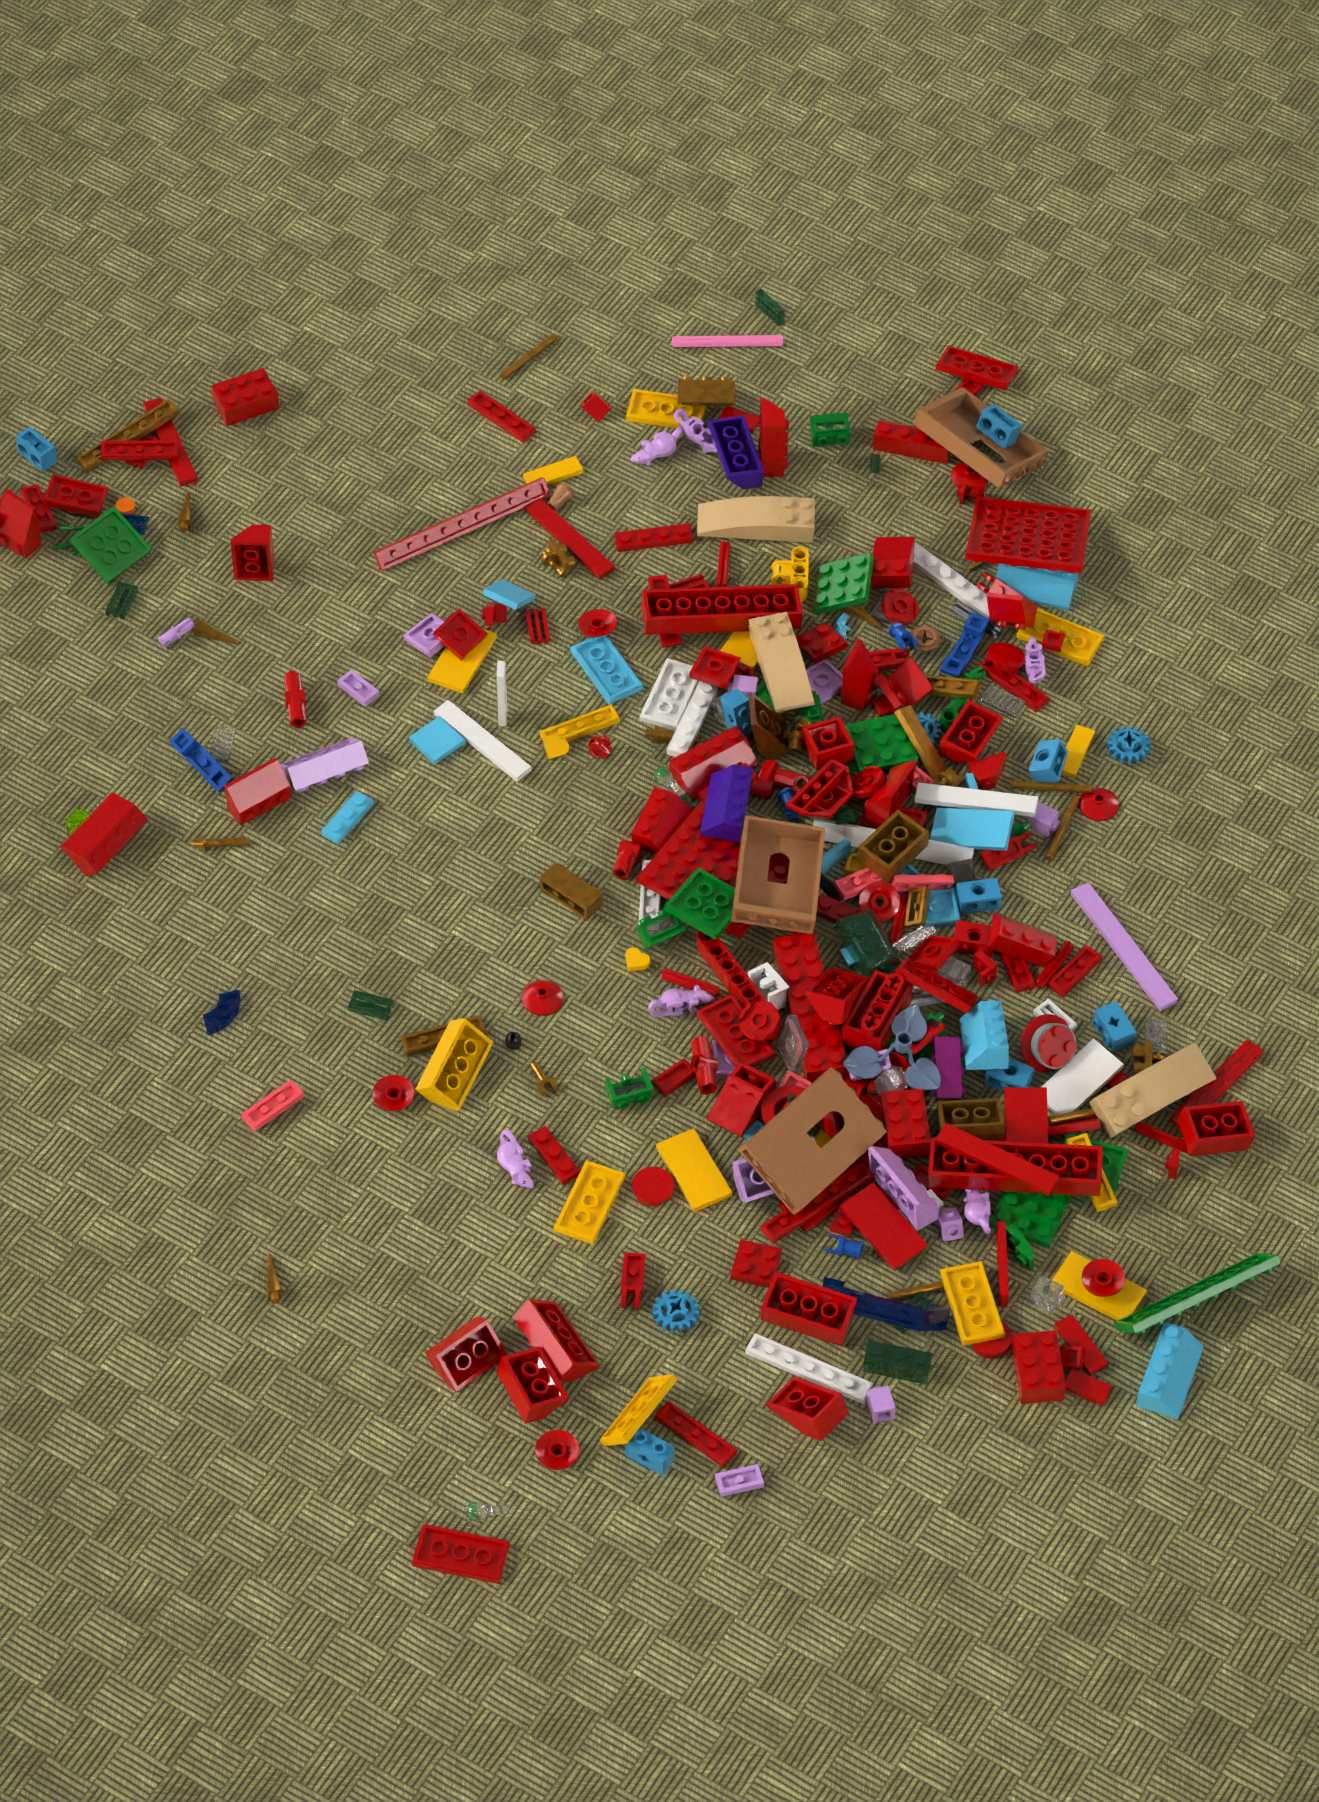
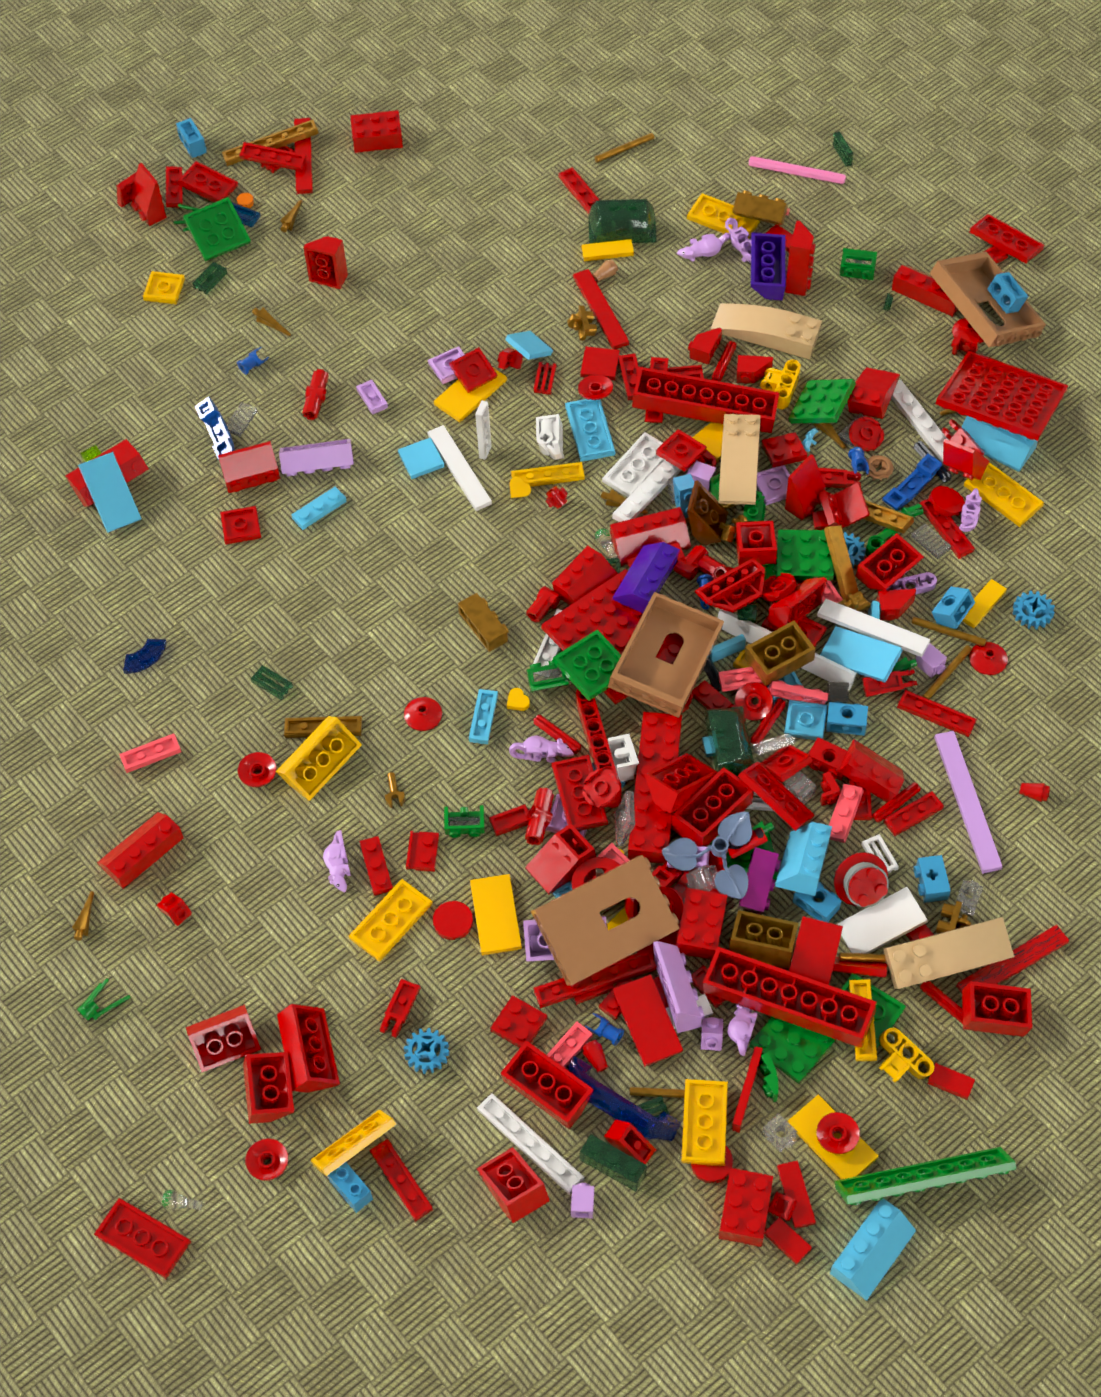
camera: 20 degrees right, 5 degrees up
(73, 622) = (163, 287): none -> yellow tile
(118, 852) = (109, 492): none -> medium azure tile
(175, 632) = (240, 314): lavender axle -> none
(201, 842) = (188, 501): pearl gold piece -> none
(208, 681) = (250, 362): none -> blue piece
(269, 854) = (240, 525): none -> red tile
(303, 1199) = (141, 849): none -> red slope
(316, 1361) = (89, 1008): none -> green plant
(363, 1245) = (174, 908): none -> red bracket
(461, 523) = (513, 275): plate -> none
(517, 1041) = (384, 750): black hinge -> none
(558, 438) = (622, 221): none -> clear green windscreen
(568, 685) = (550, 435): none -> white piece
(590, 595) = (600, 362): none -> red tile
(596, 405) = (664, 200): red panel -> none
(596, 1129) = (422, 851): none -> red plate
(608, 984) = (483, 716): none -> medium azure plate
(628, 600) = (629, 371): none -> red plate
(653, 537) = (672, 323): red plate -> none
(697, 553) = (705, 345): none -> red slope
(739, 1480) = (422, 1240): lavender plate -> none
(756, 565) = (752, 368): none -> red slope
(817, 1266) = (570, 1044): none -> coral plate
(842, 1271) = (594, 1053): none -> red cone
(884, 1005) = (718, 805): red beam -> none
(906, 1335) = (630, 1141): none -> red slope
(920, 907) = (786, 715): pearl gold tile -> none
(997, 1159) = (772, 987): red tile -> none
(1001, 744) = (917, 580): none -> lavender beam
(1008, 985) = (845, 812): none -> coral plate
(1053, 640) = (994, 496): red tile -> none
(1065, 869) = (937, 713): none -> red tile
(1137, 1201) = (896, 1063): none -> yellow piece
(1172, 1163) = (944, 1031): red plate -> none
(1187, 920) = (1036, 791): none -> red cone
(1193, 1207) = (951, 1081): none -> red tile

